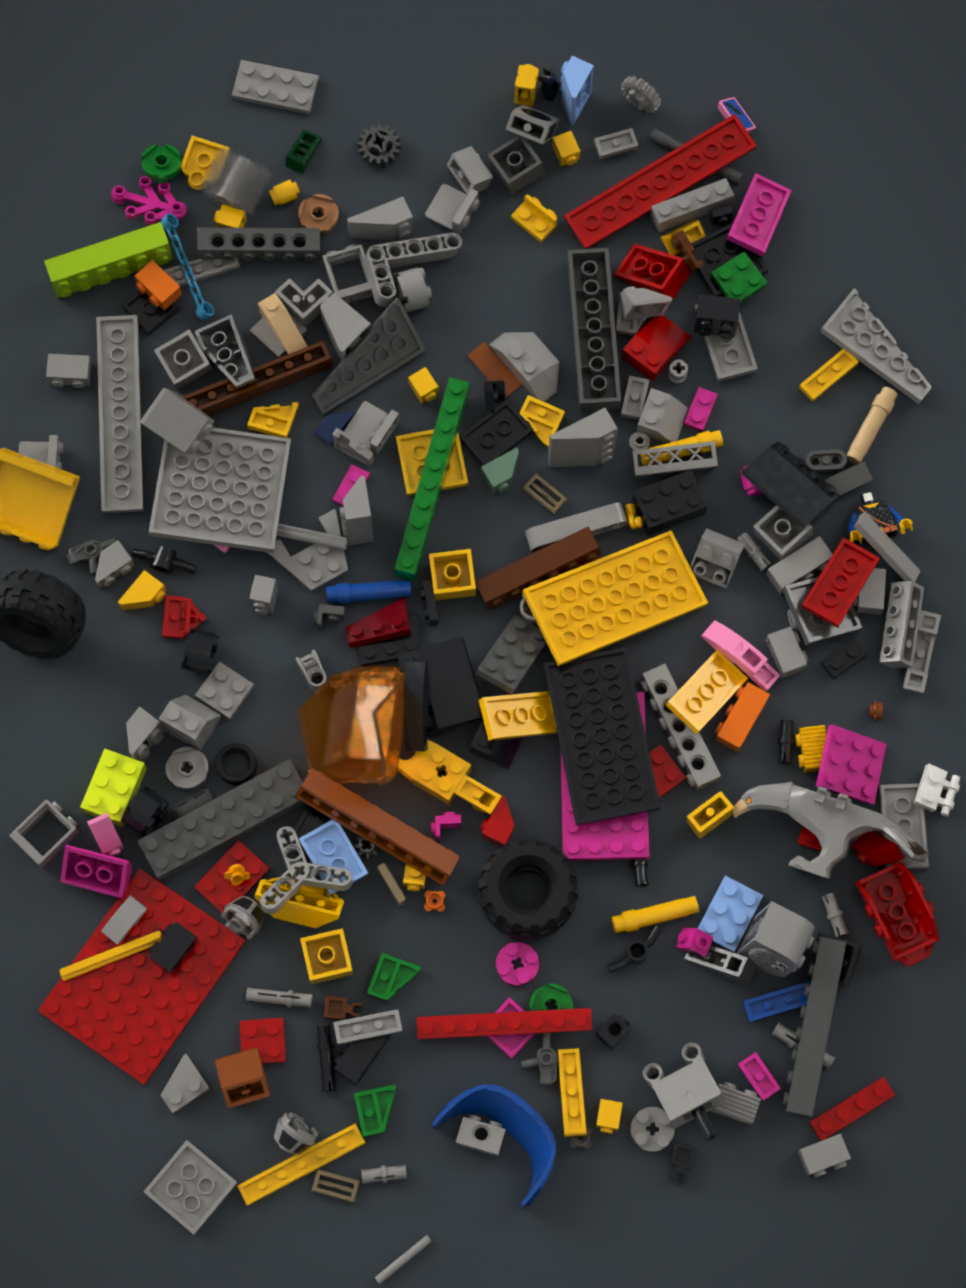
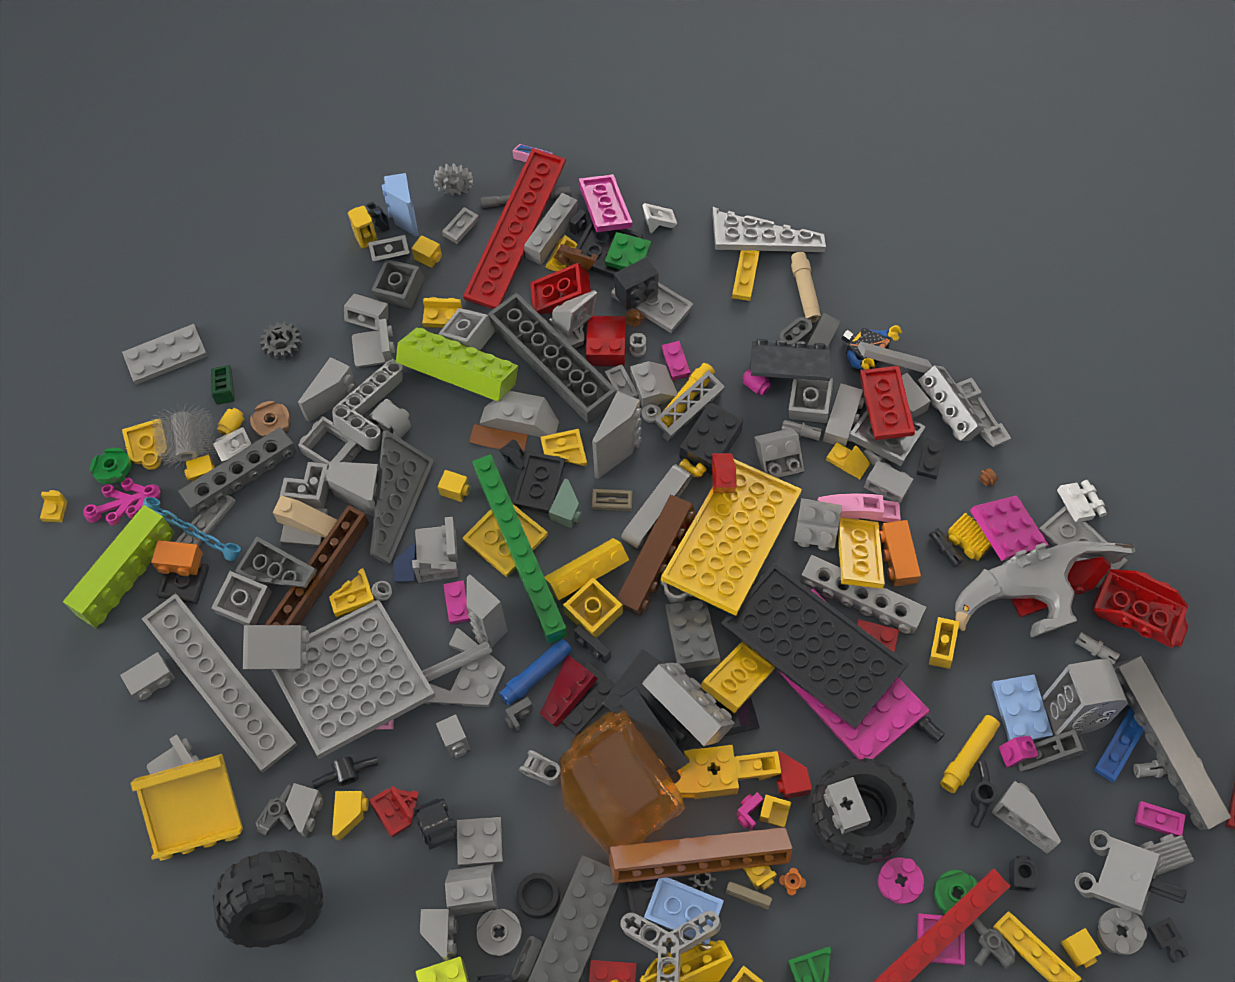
camera: 35 degrees left, 10 degrees down
(92, 166) = (53, 506): none -> yellow bracket
(270, 214) = (231, 444): none -> white slope
(303, 431) = (383, 586): none -> light grey plate
(456, 705) = (689, 703): none -> light grey brick
(464, 839) = (774, 811): none -> yellow panel
(473, 536) = (588, 566): none -> yellow brick
(507, 278) = (457, 364): none -> lime brick
(519, 863) = (846, 792): none -> light grey brick
(541, 252) = (468, 328): none -> light grey slope
(648, 540) = (723, 473): none -> red slope
(651, 982) = (1025, 815): none -> light grey slope
(693, 642) = (817, 524): none -> light grey plate
(696, 343) = (634, 318): none -> clear orange plate
(771, 607) = (850, 461): none -> yellow slope
(796, 262) = (658, 216): none -> white slope

